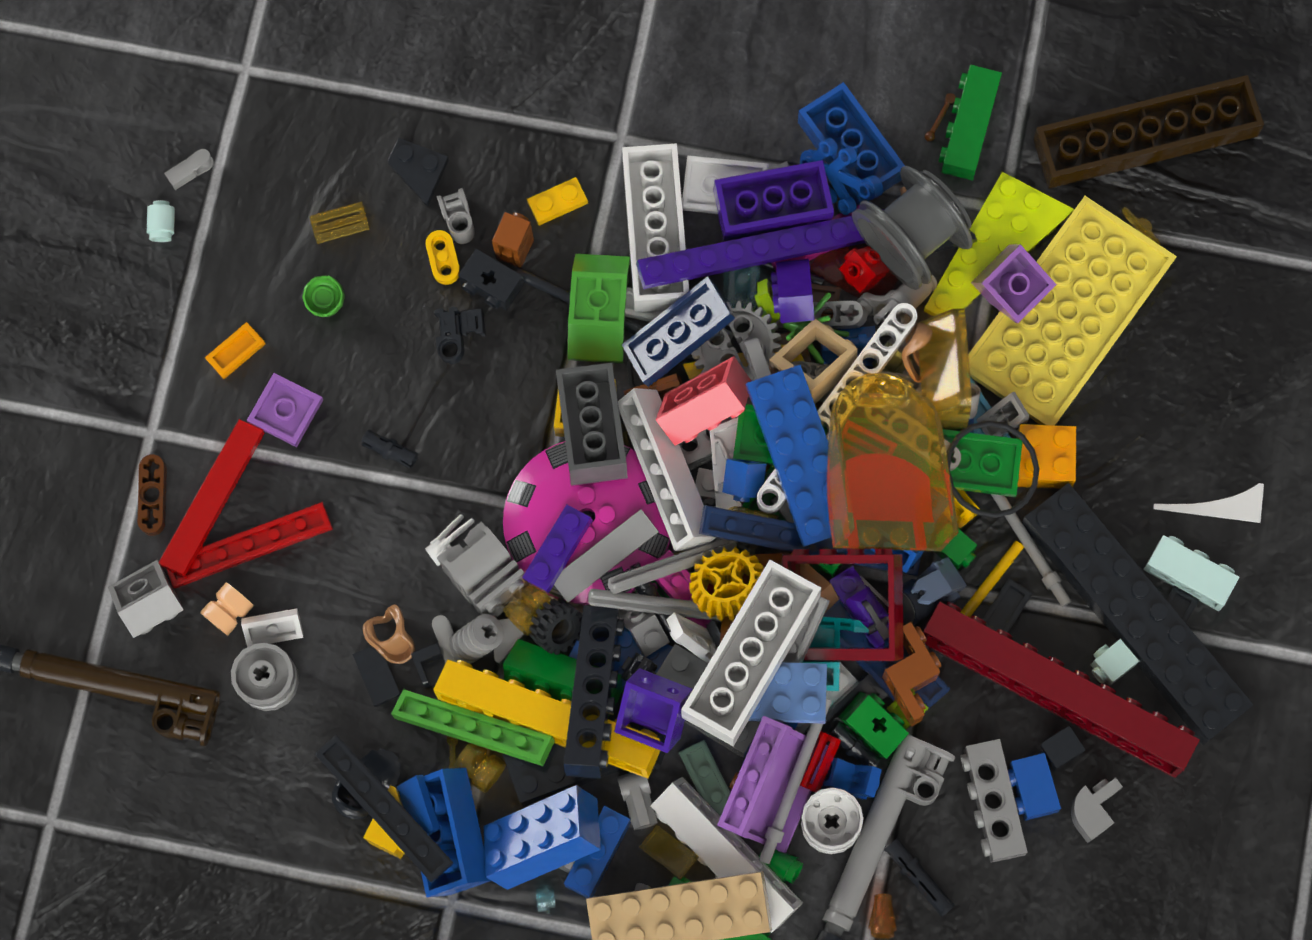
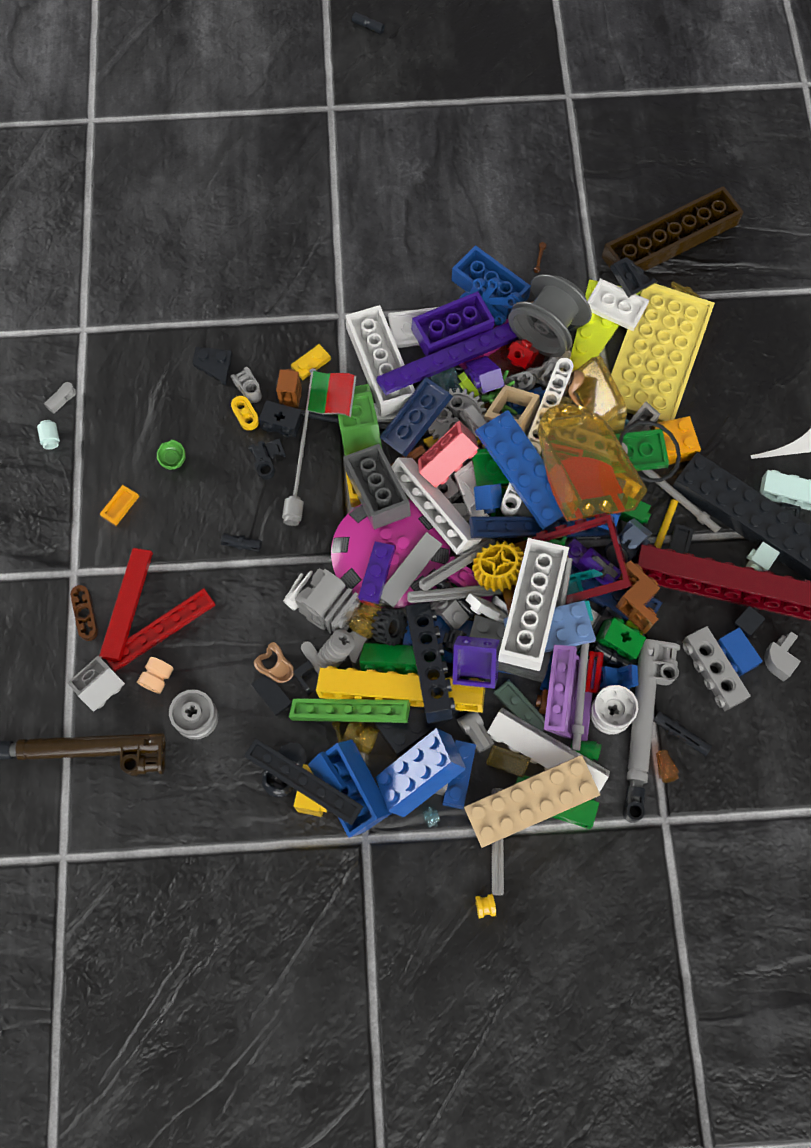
camera: 20 degrees left, 5 degrees down
(272, 627) = (190, 679): white plate -> none
(285, 410) = (163, 534): medium lavender plate -> none
(341, 232) = (172, 410): clear yellow tile -> none
(565, 265) = (326, 395): none -> flag
(971, 122) = (560, 249): green brick -> none
(1014, 282) = (620, 339): medium lavender slope -> none
(1026, 220) = (613, 304): none -> white tile
(1058, 191) = (631, 277): none -> black wing

